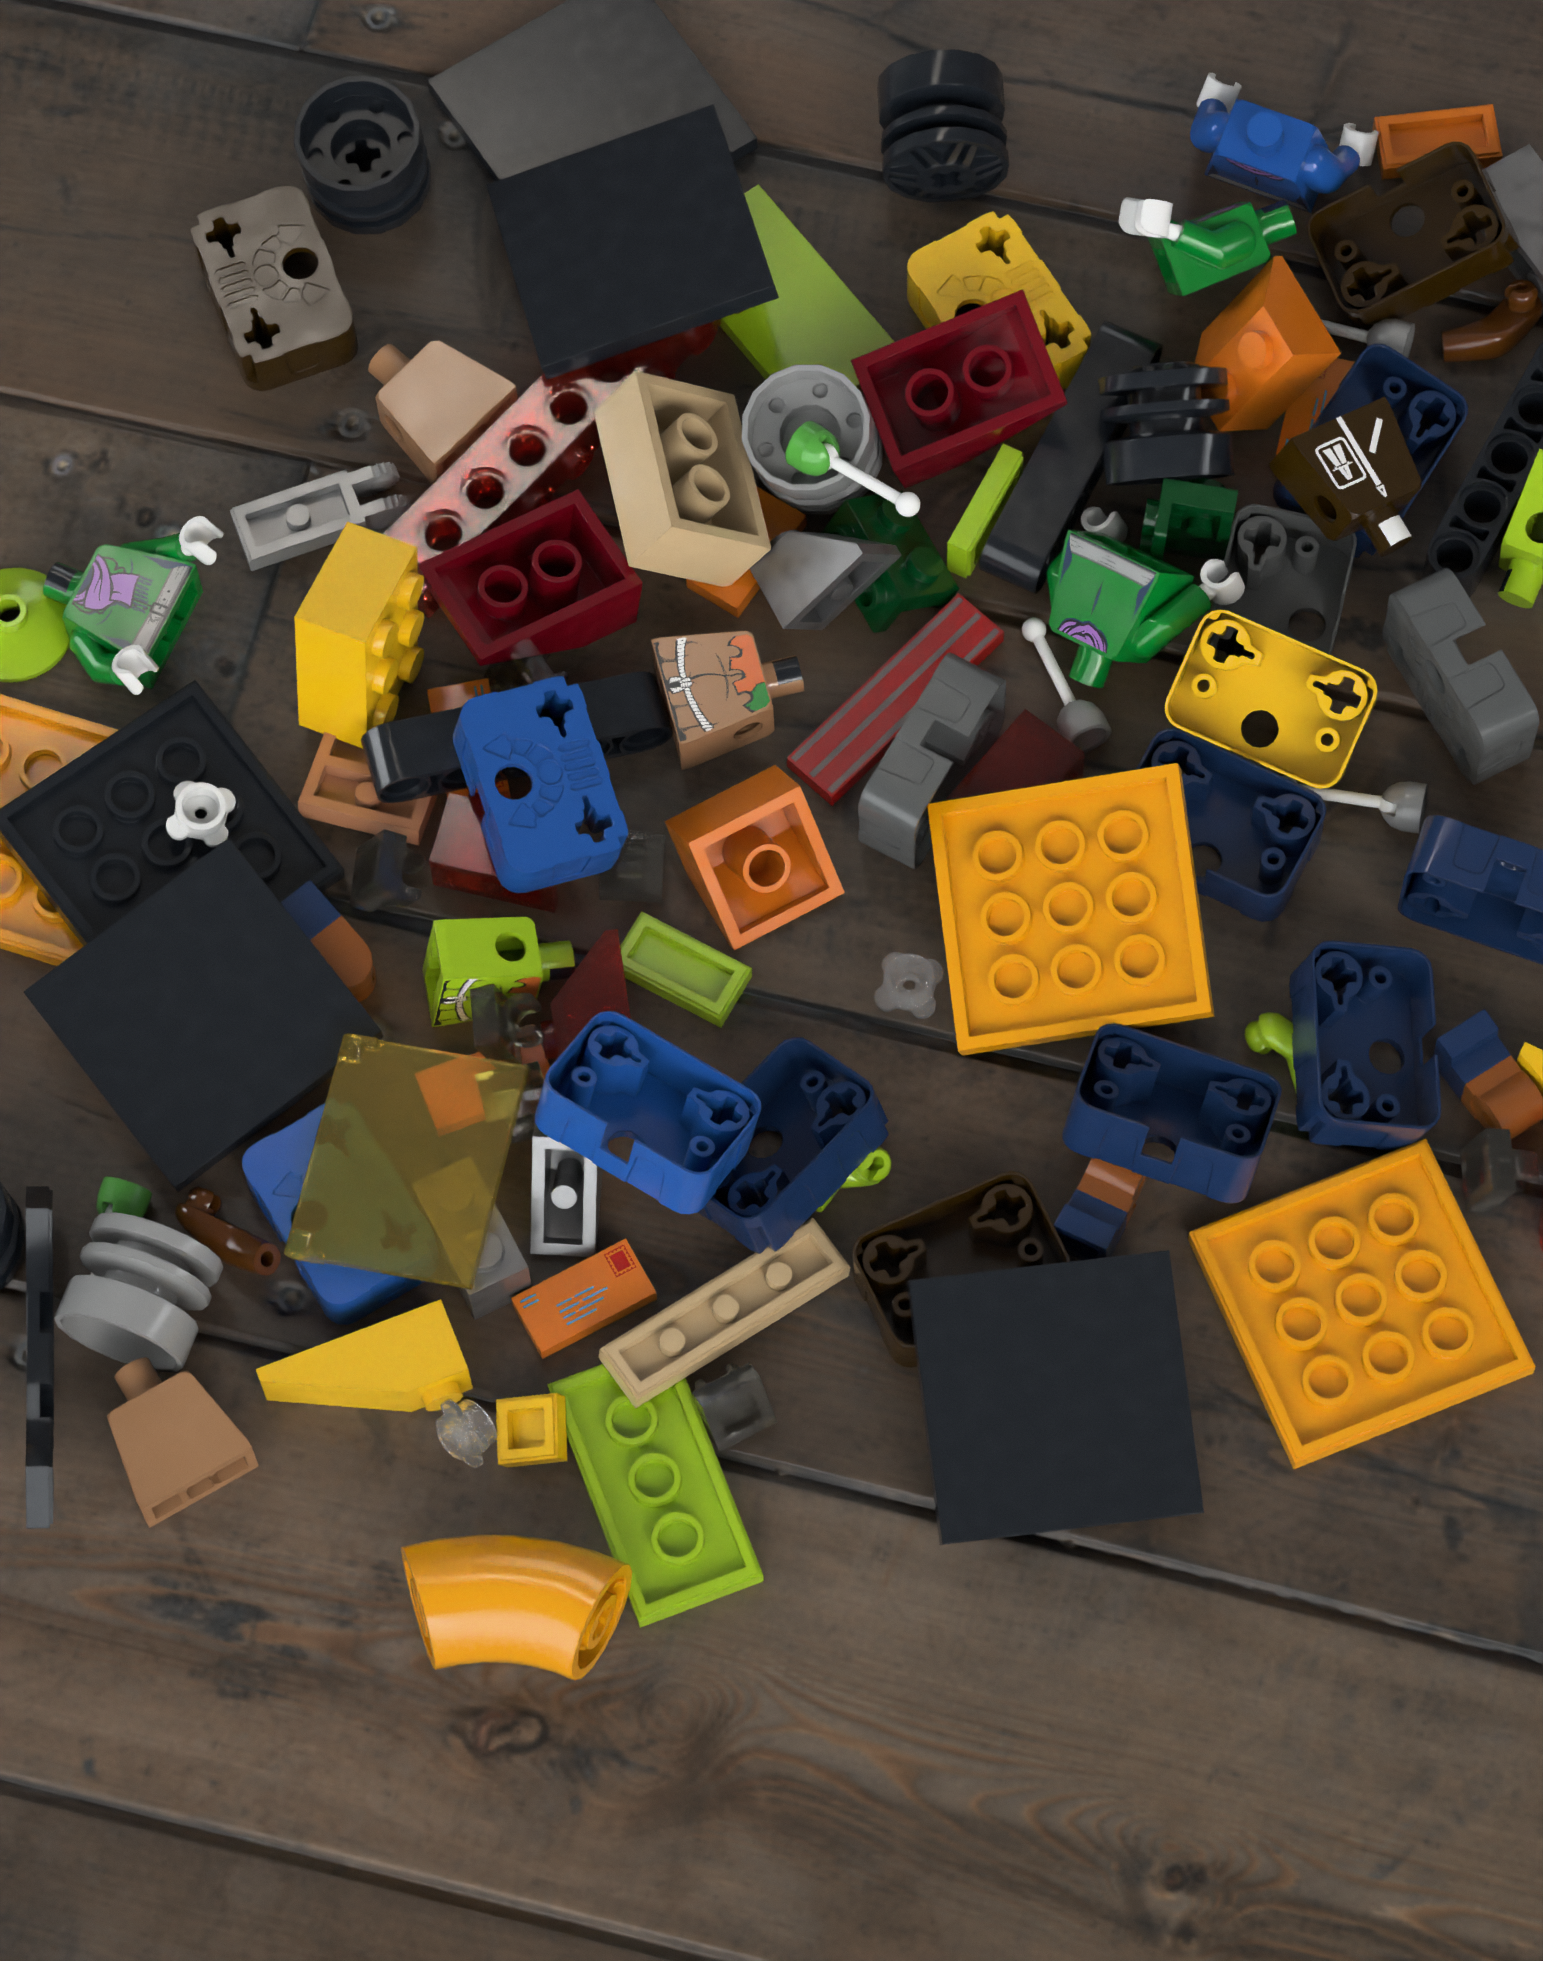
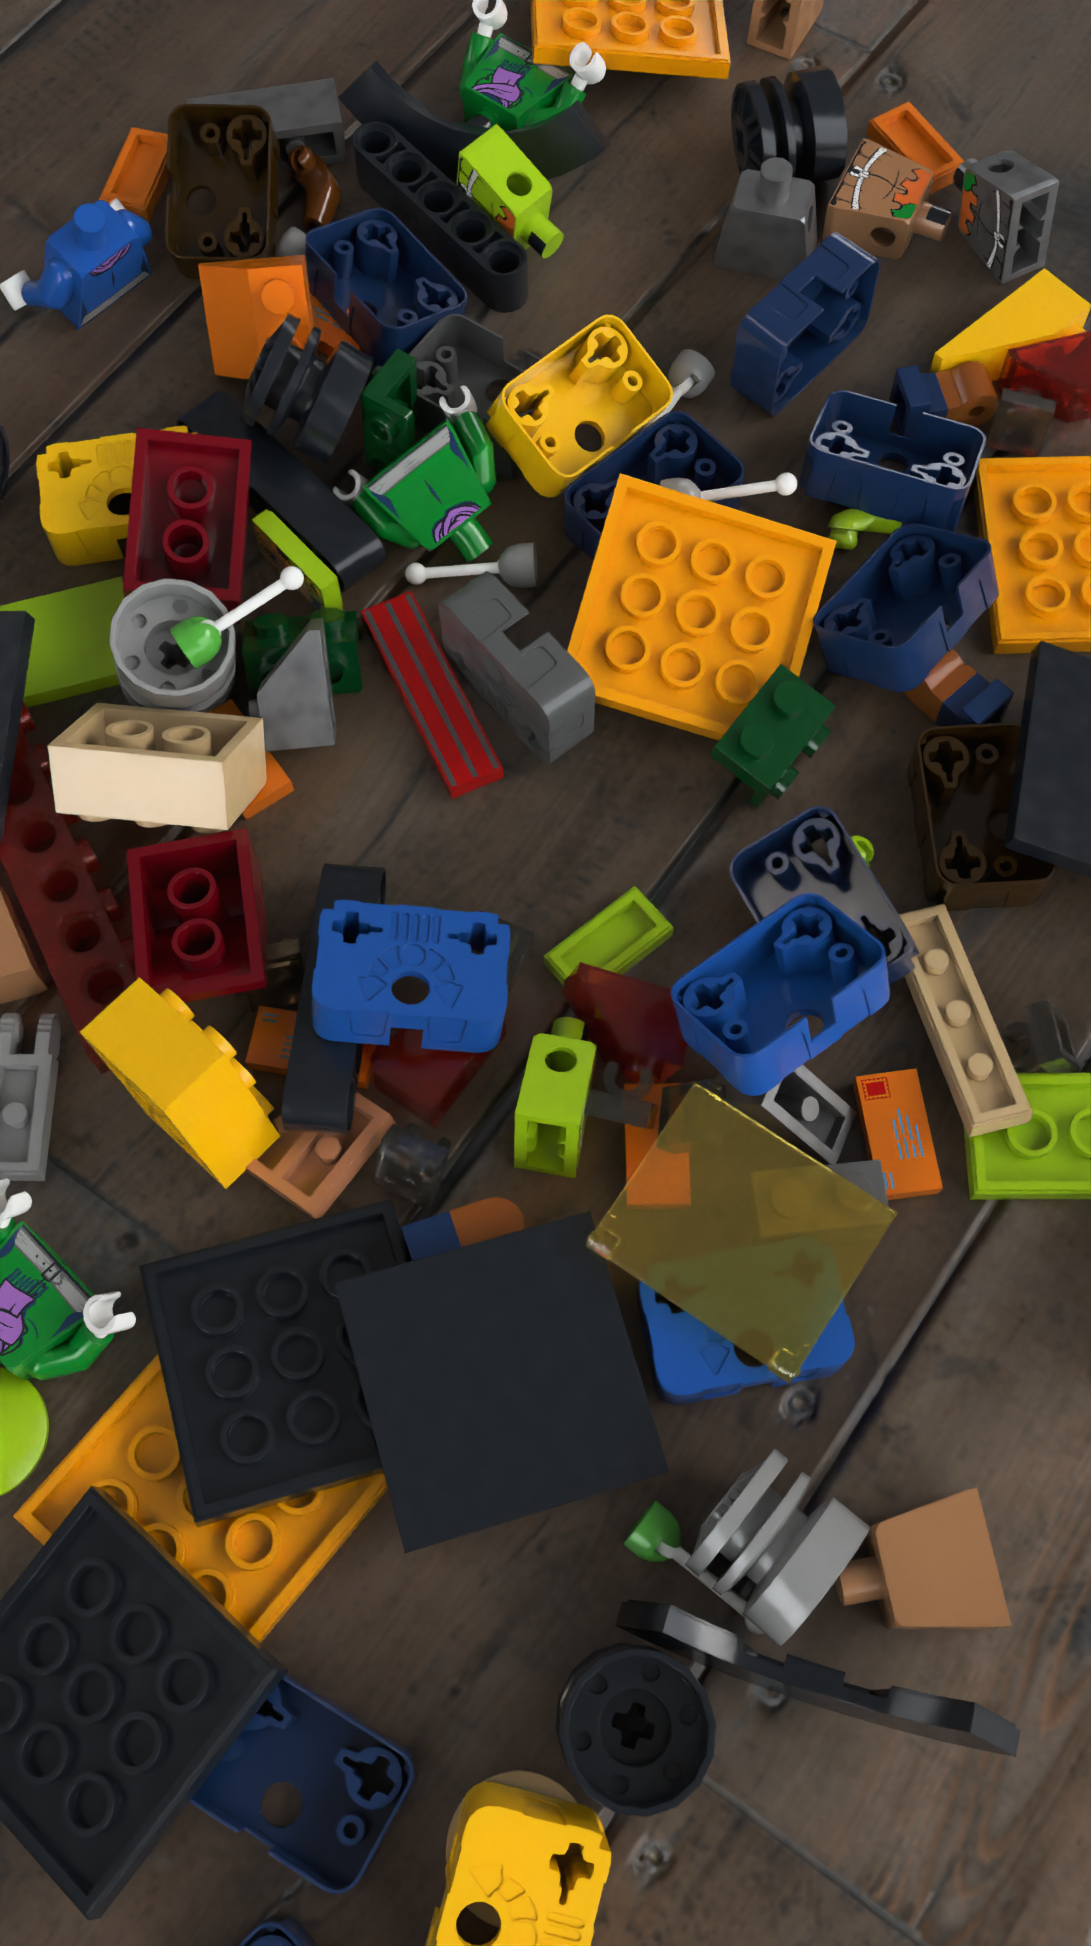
camera: 70 degrees left, 0 degrees up
(196, 796) = (281, 1288): white plate -> none
(224, 1239) = (730, 1442): reddish brown arm -> none
(386, 1366) = (917, 1319): yellow slope -> none
(465, 1431) = (1002, 1281): clear plate -> none
(531, 1430) = (1017, 1223): yellow tile -> none
(719, 691) = (364, 818): medium nougat torso -> none
(755, 856) = (531, 843): orange slope -> none
(909, 967) = (696, 756): clear plate -> none
(964, 1036) = (772, 733): none -> dark green bracket
(1023, 758) = (552, 602): clear red slope -> none
(1208, 246) = (157, 323): green torso -> none
(1213, 849) = (784, 484): none -> white hinge
(1353, 476) = (418, 279): dark brown torso -> none
(1475, 707) = (568, 272): dark grey axle -> none

